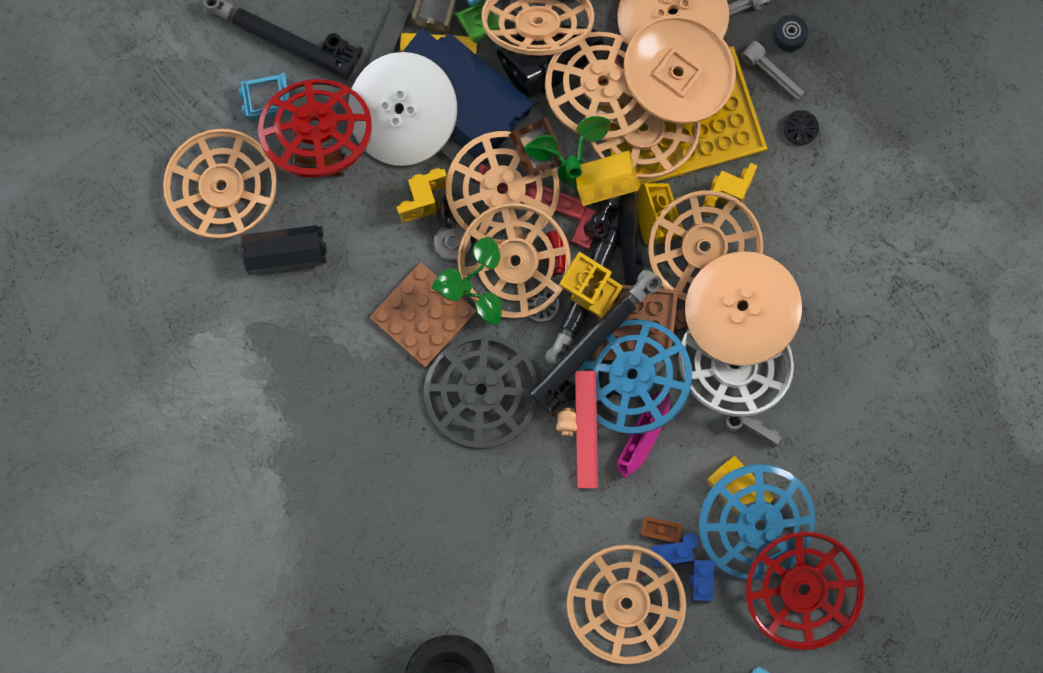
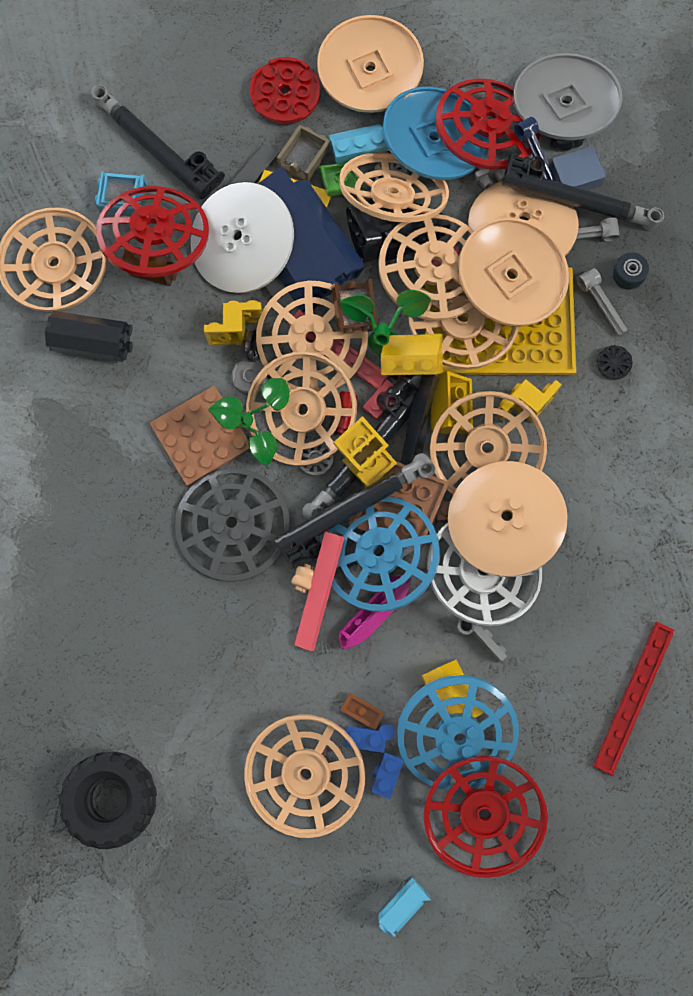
camera: 15 degrees right, 0 degrees up
(910, 442) = (633, 698): none -> red tile

